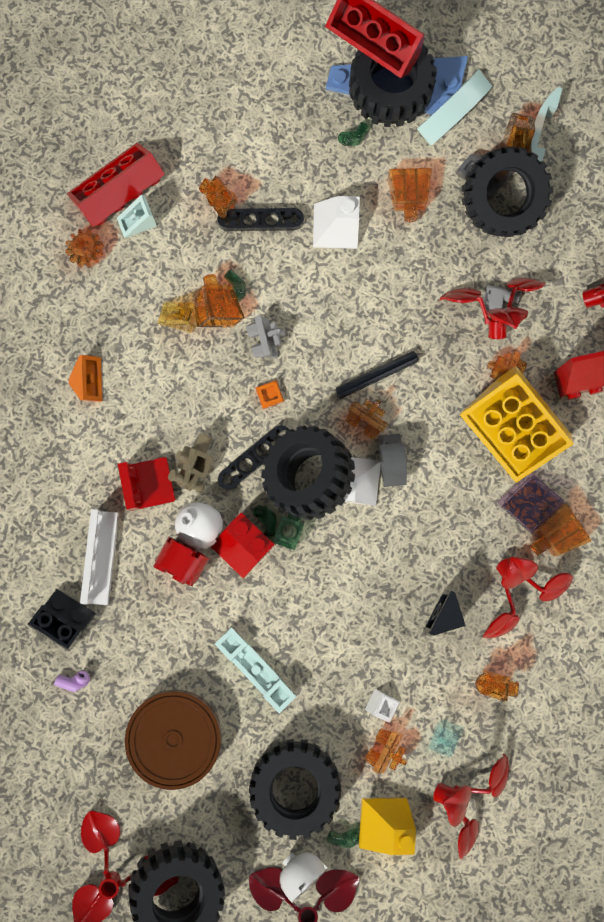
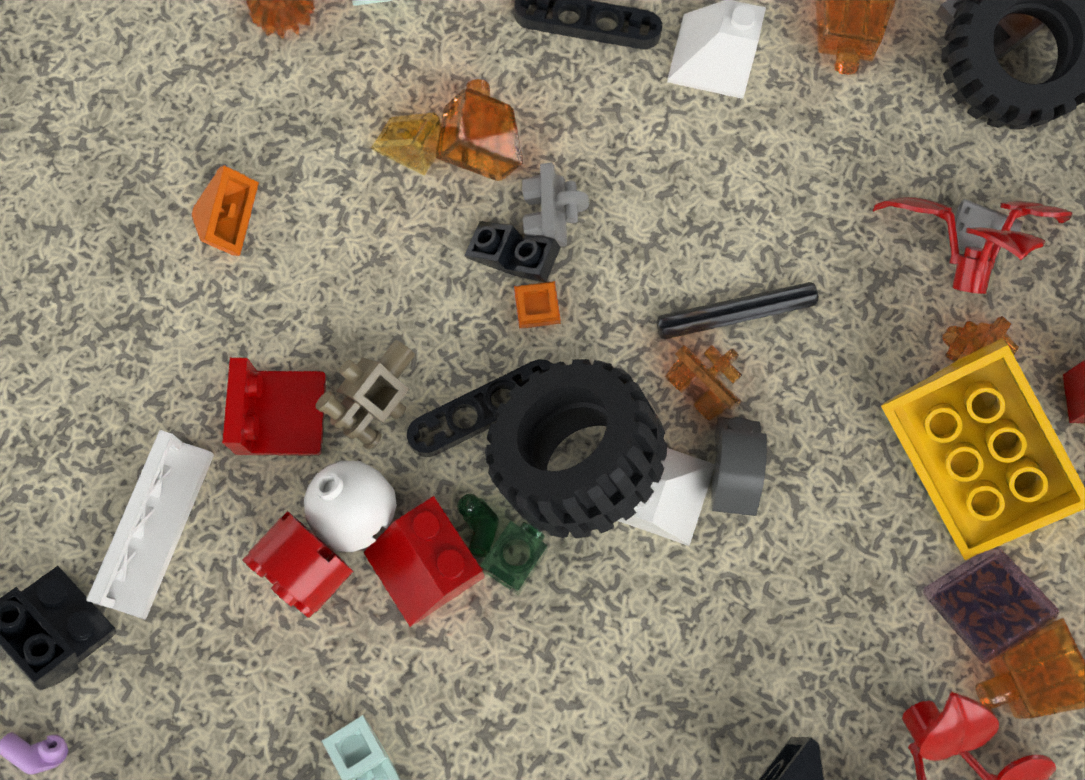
camera: 15 degrees right, 10 degrees down
(237, 283) = (524, 110): clear green arm -> none
(249, 367) = (511, 252): none -> black slope

